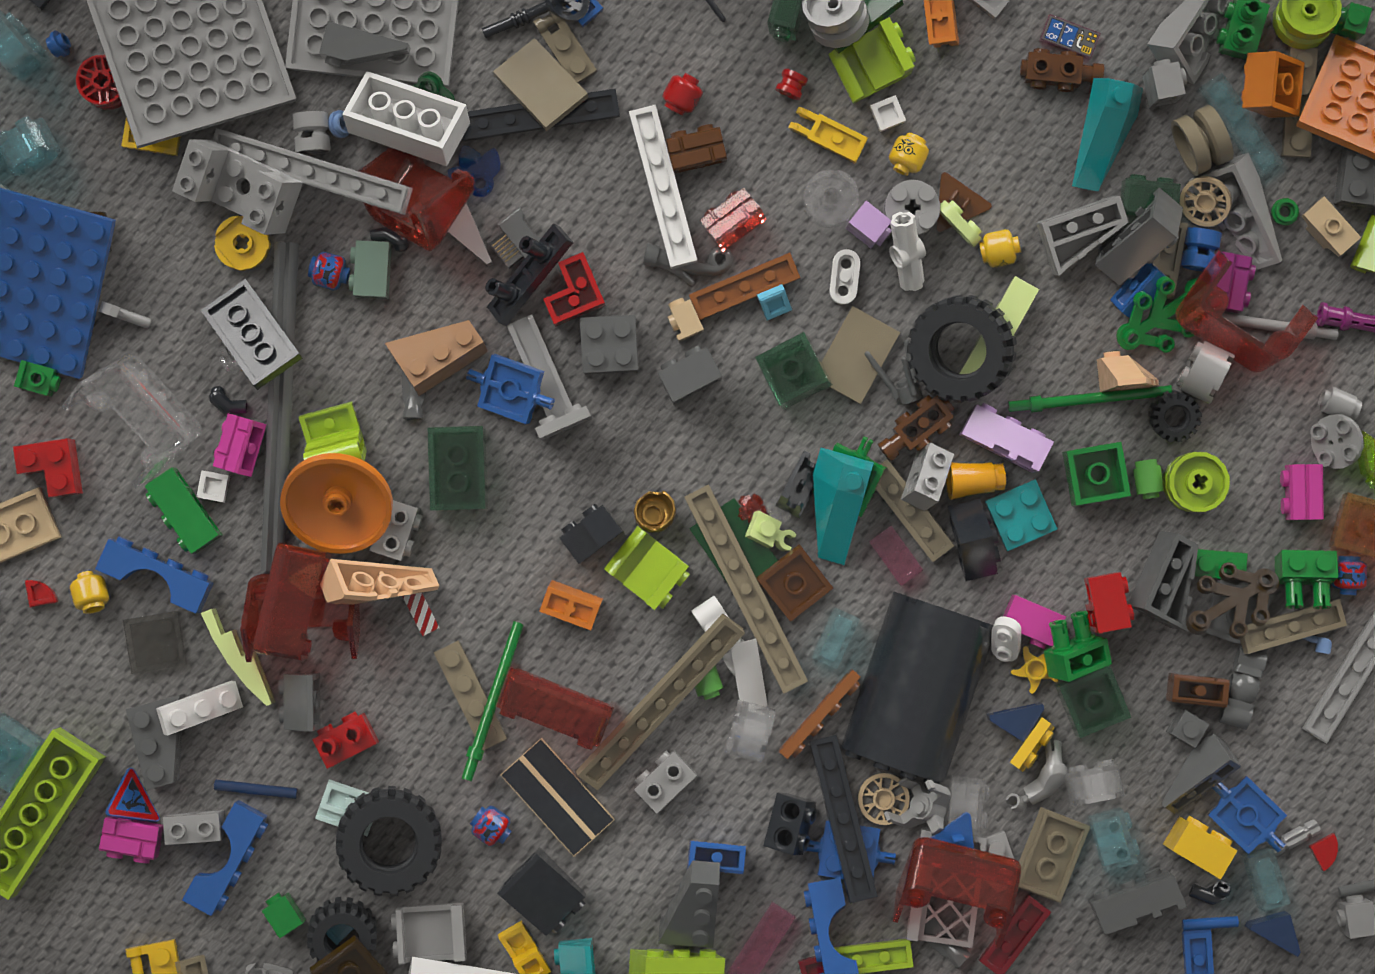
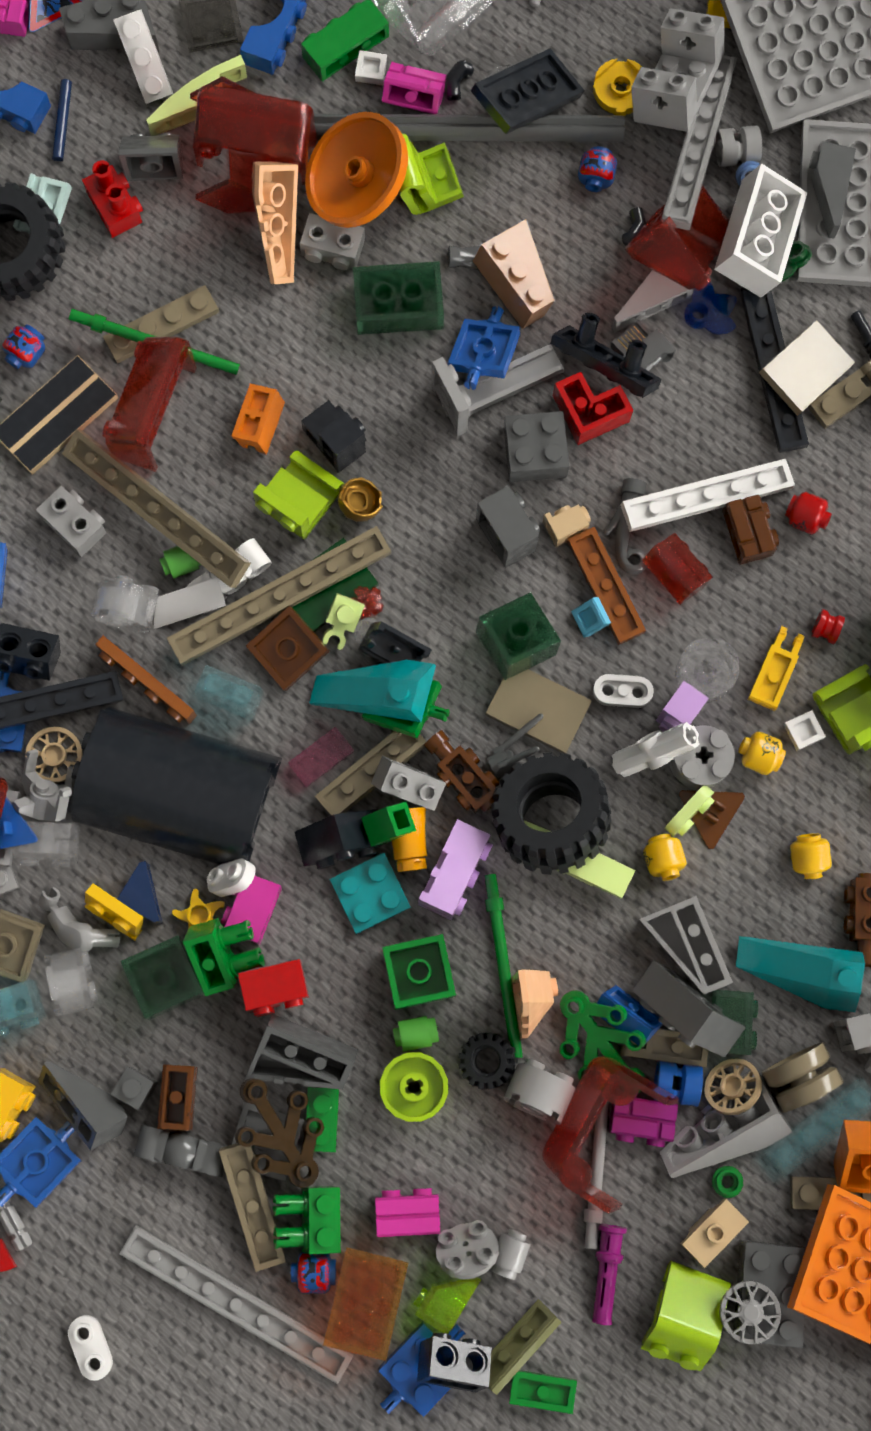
camera: 85 degrees right, 10 degrees down
(194, 827) = (21, 55): light grey brick -> none
(371, 269) = (601, 209): sand green brick -> none
(421, 613) = (246, 274): sticker -> none
(968, 495) = (388, 824): none -> green brick
(1003, 116) = (811, 855): none -> yellow head
(1323, 645) = (231, 1245): medium blue hand -> none

